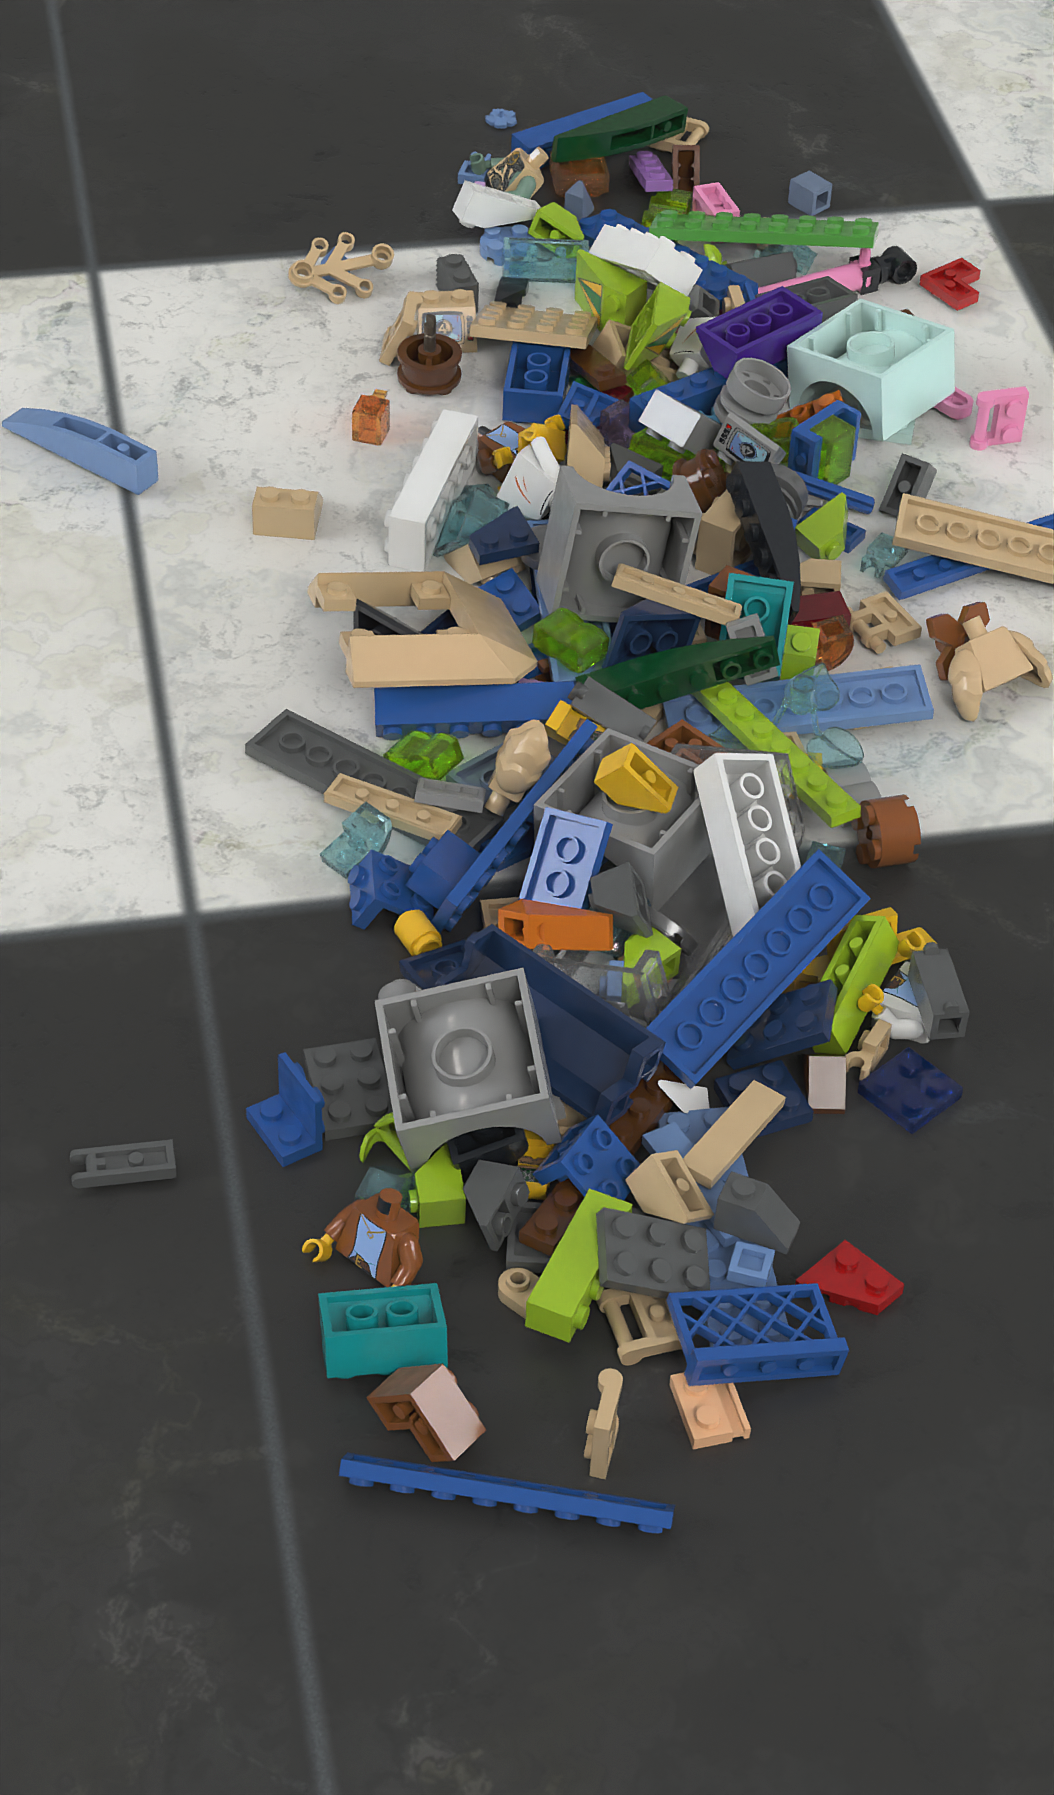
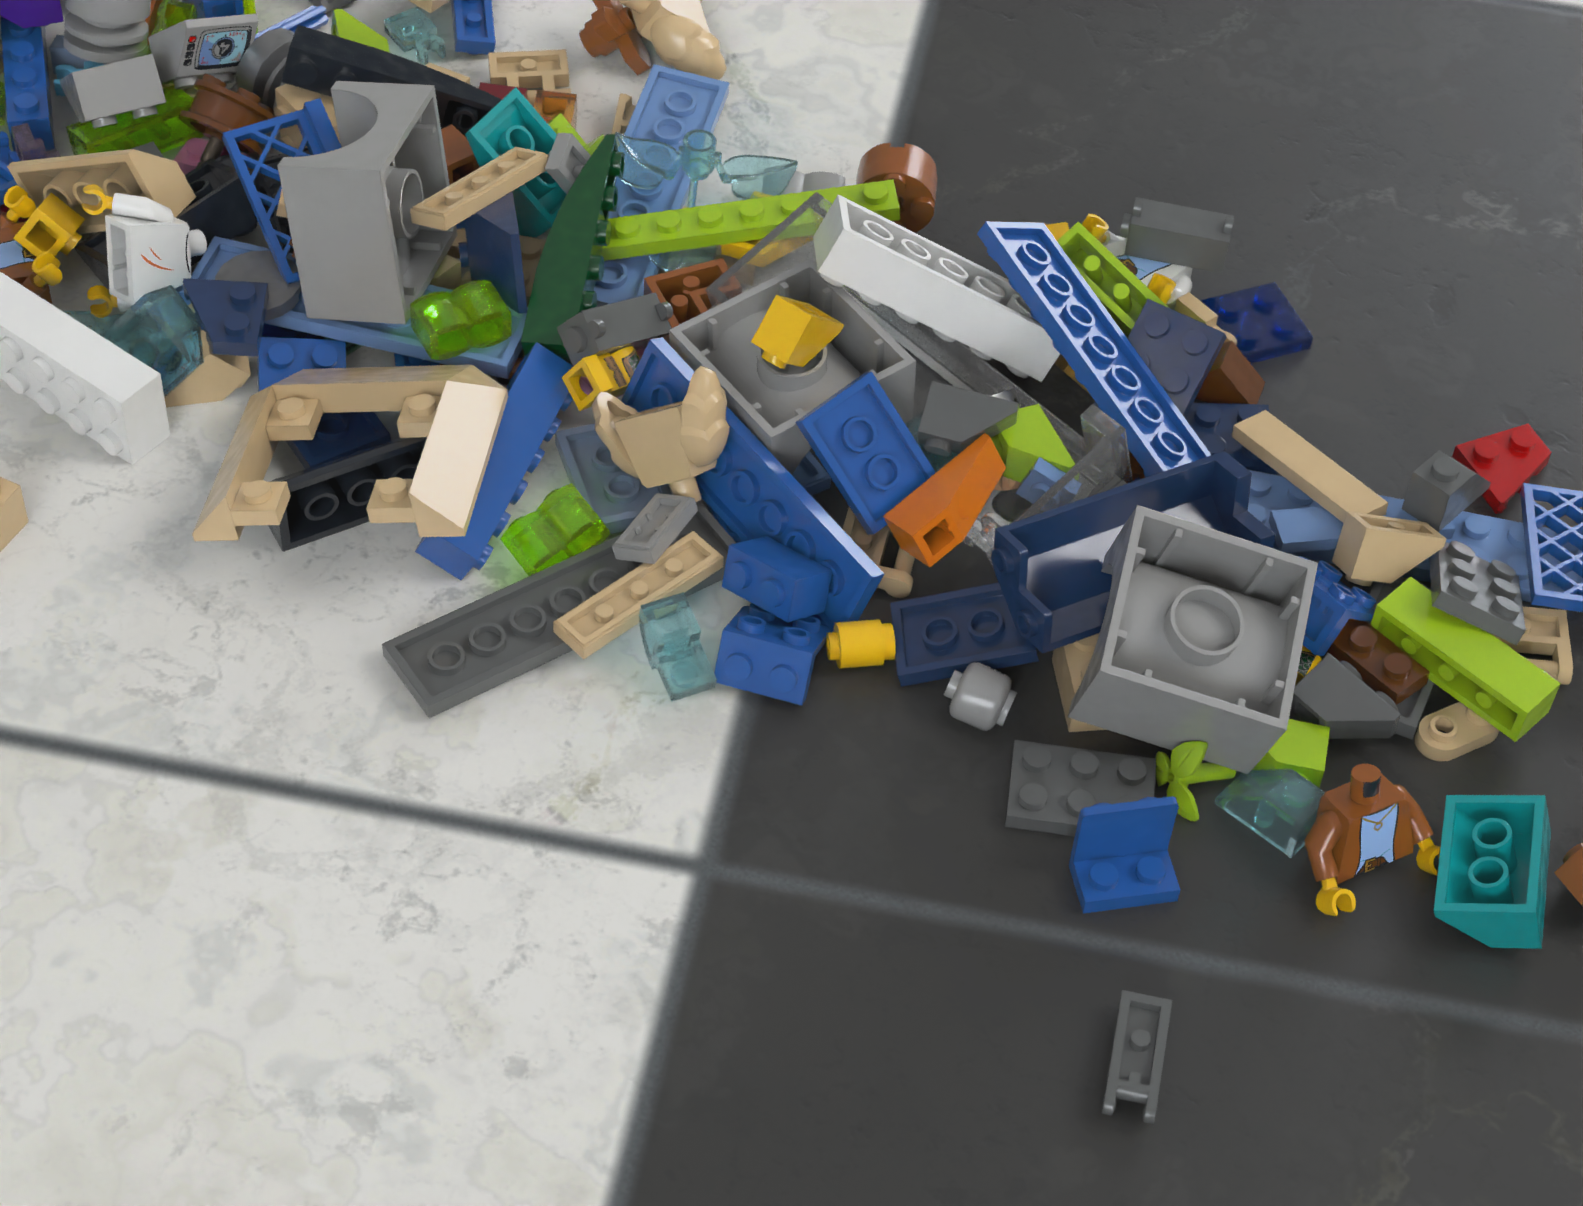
camera: 70 degrees left, 5 degrees up
(750, 1264) = (1497, 520): medium blue plate -> none

